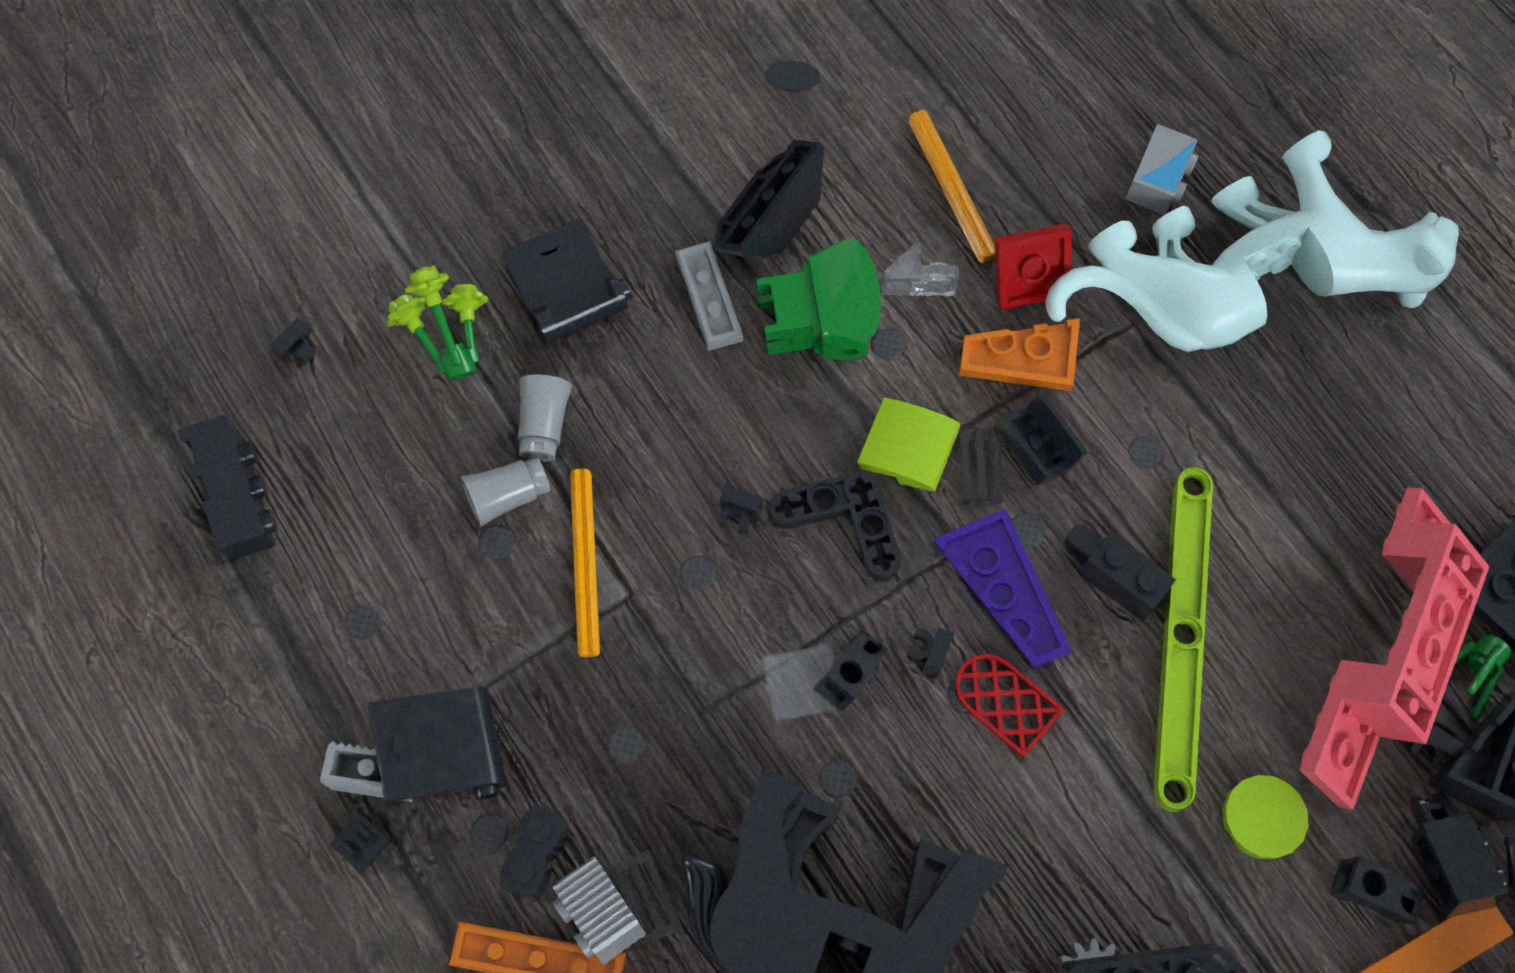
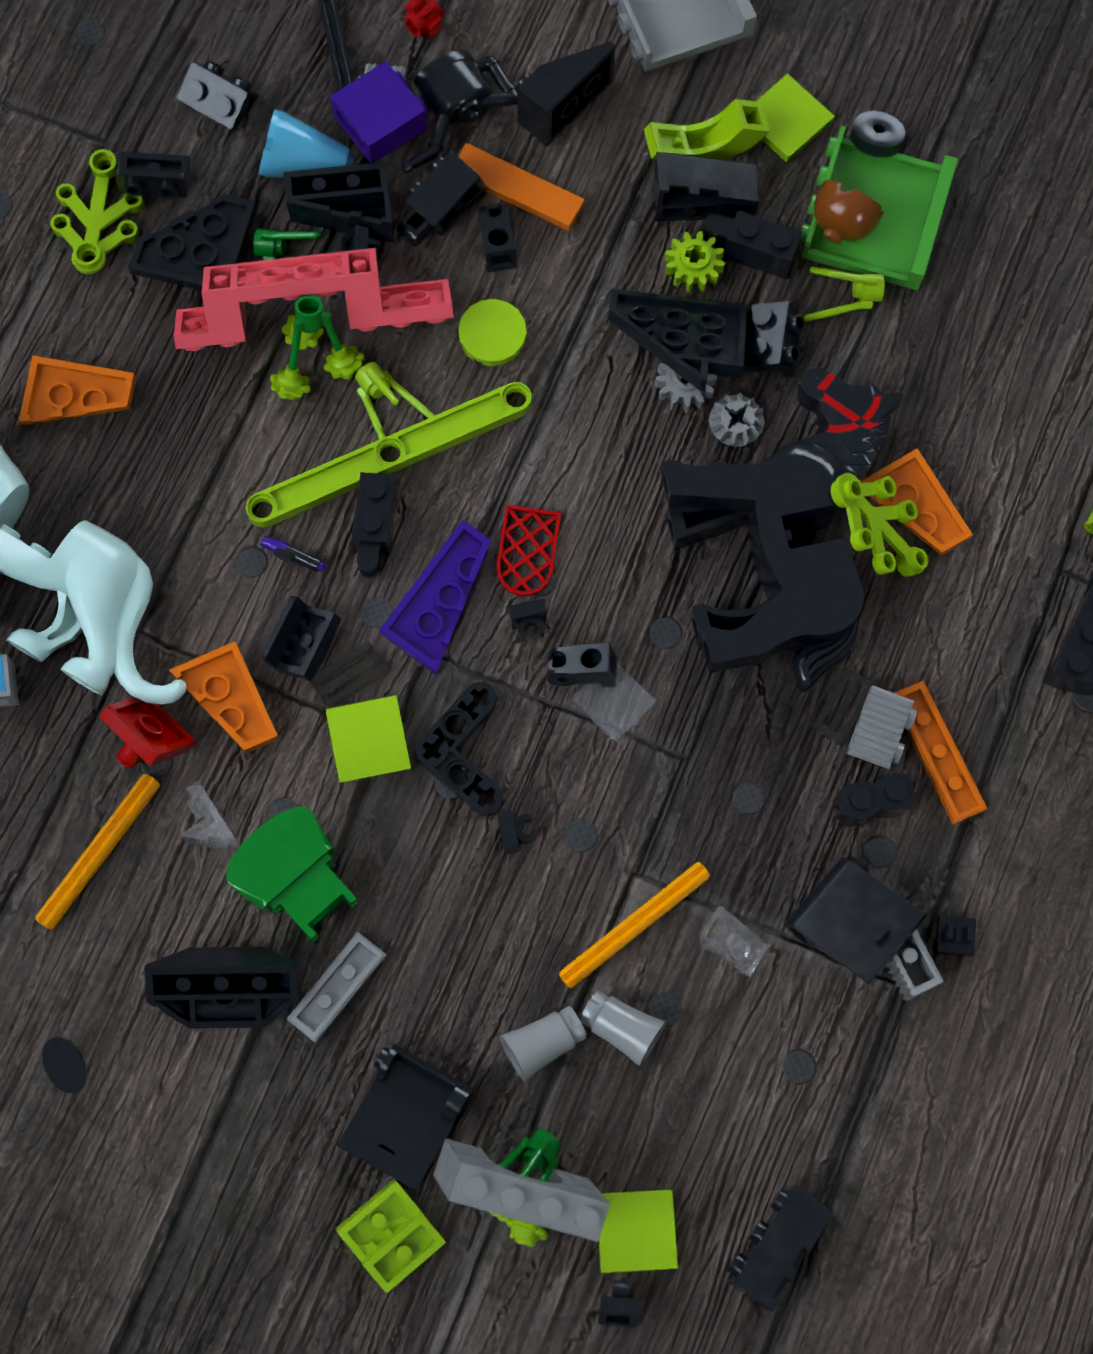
camera: 125 degrees left, 5 degrees up
(339, 398) = (638, 1232): none -> lime tile
(443, 260) = (562, 1204): none -> light grey arch
(483, 219) = (390, 1235): none -> lime slope
(504, 627) = (733, 941): none -> clear slope
(1133, 484) = (289, 553): none -> black piece
(1268, 662) = (377, 383): none -> lime plant
(1366, 626) = (303, 331): none -> lime plant
(1414, 393) = (73, 390): none -> orange wing

